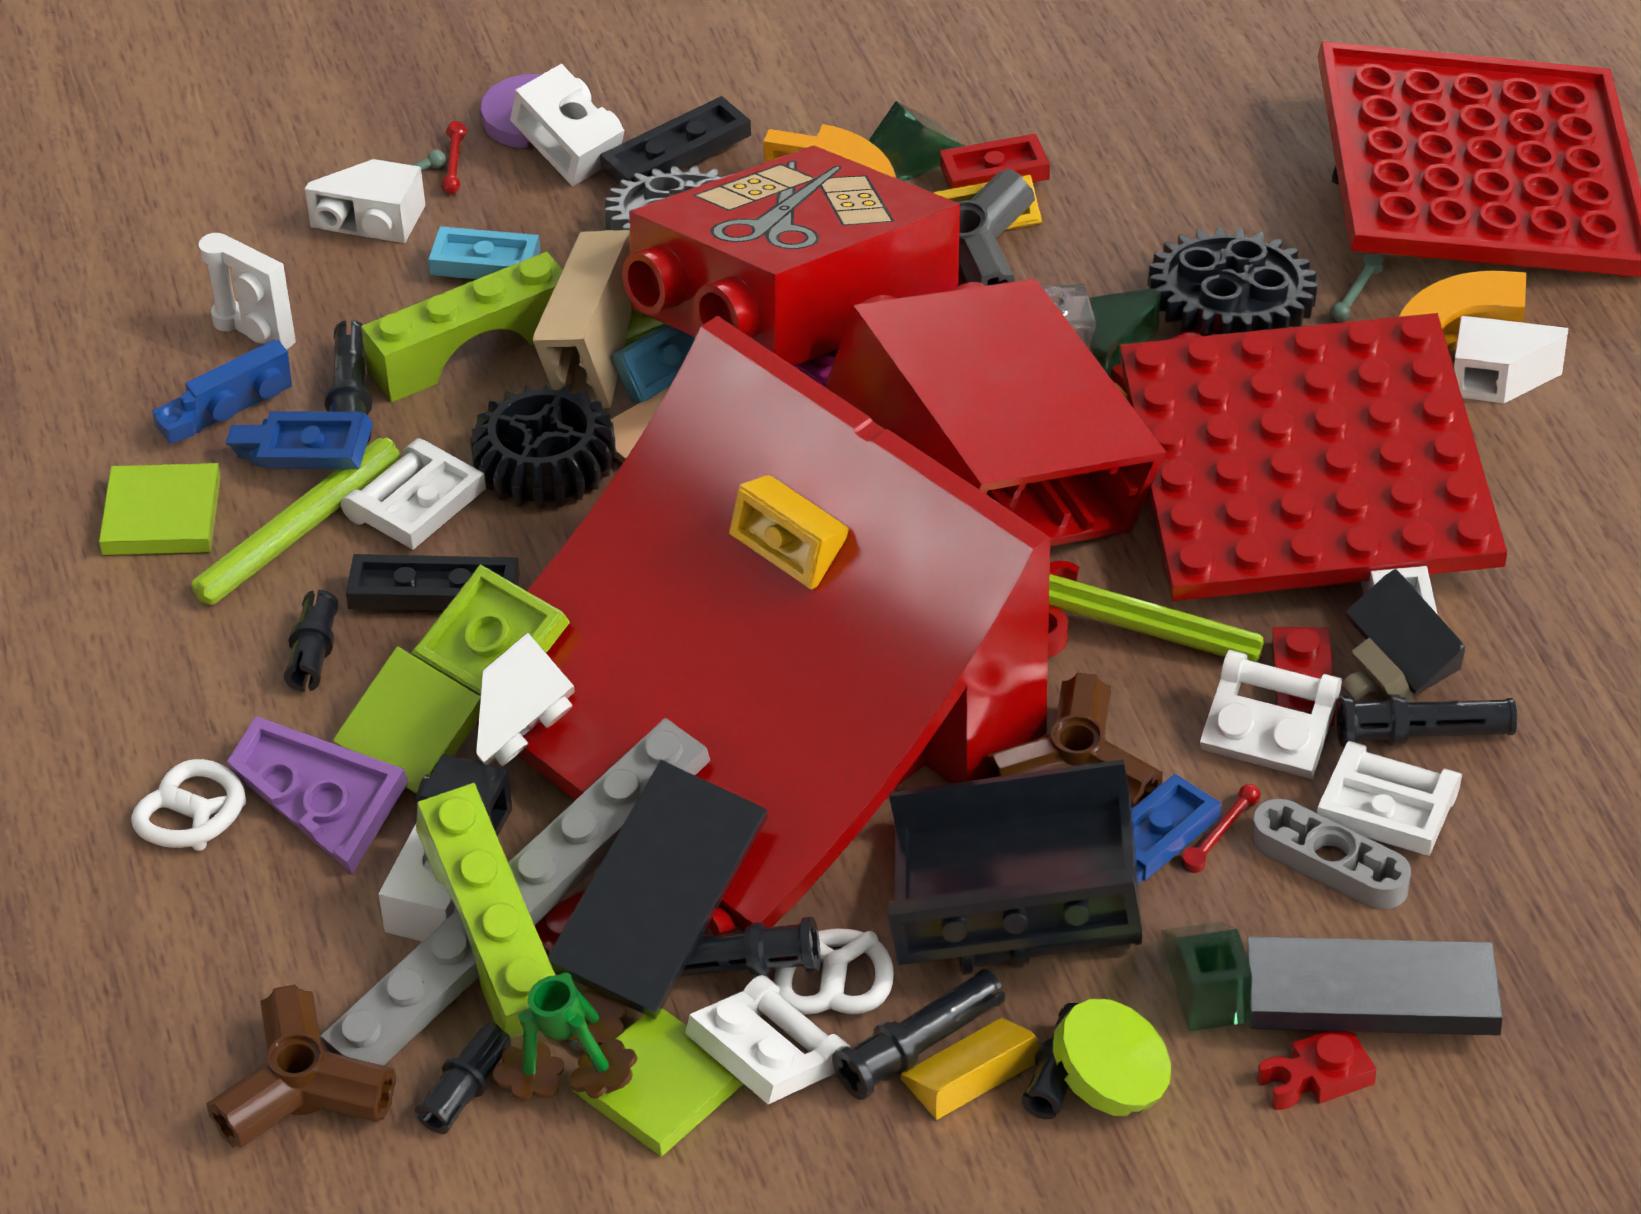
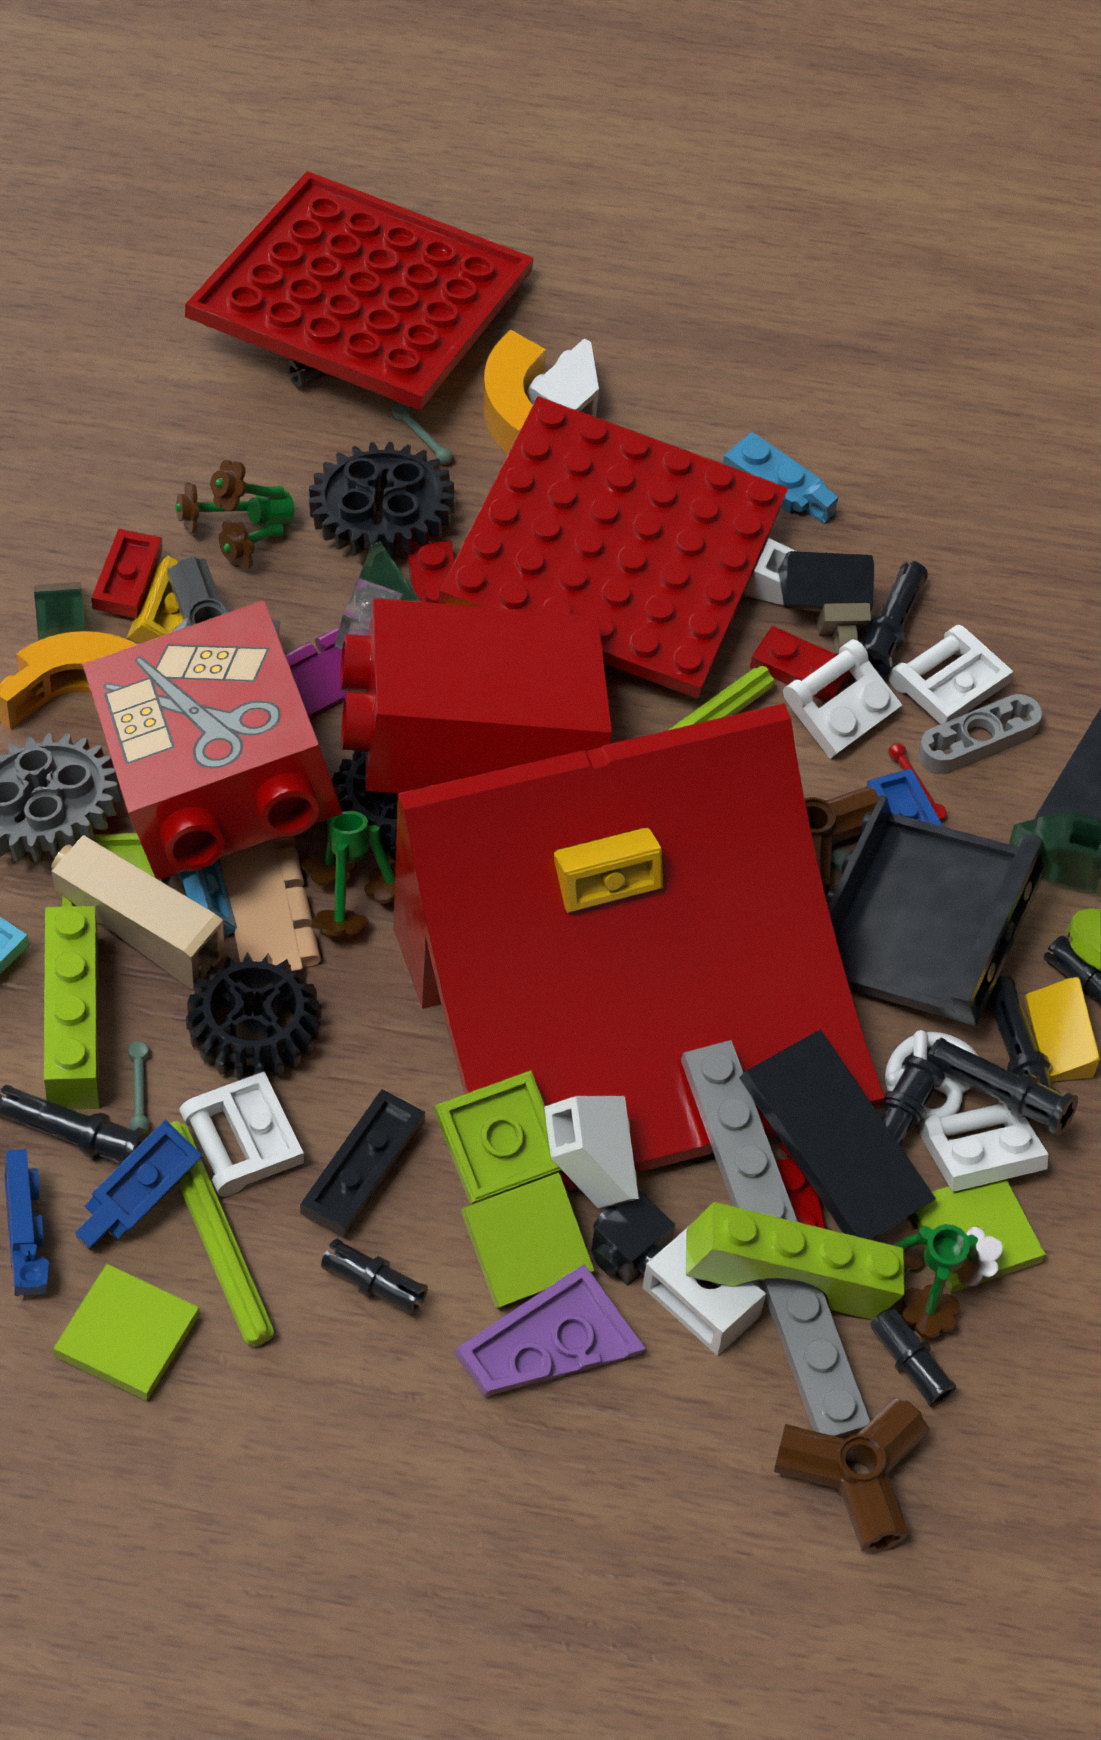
camera: 70 degrees left, 10 degrees up
(191, 805) = (517, 1434): white piece -> none
(464, 400) = (138, 1053): none -> sand green hinge
(827, 1027) = (1022, 1094): none -> black pin
(1149, 214) = (269, 509): none -> plant
(1548, 563) = (804, 488): none -> dark azure hinge

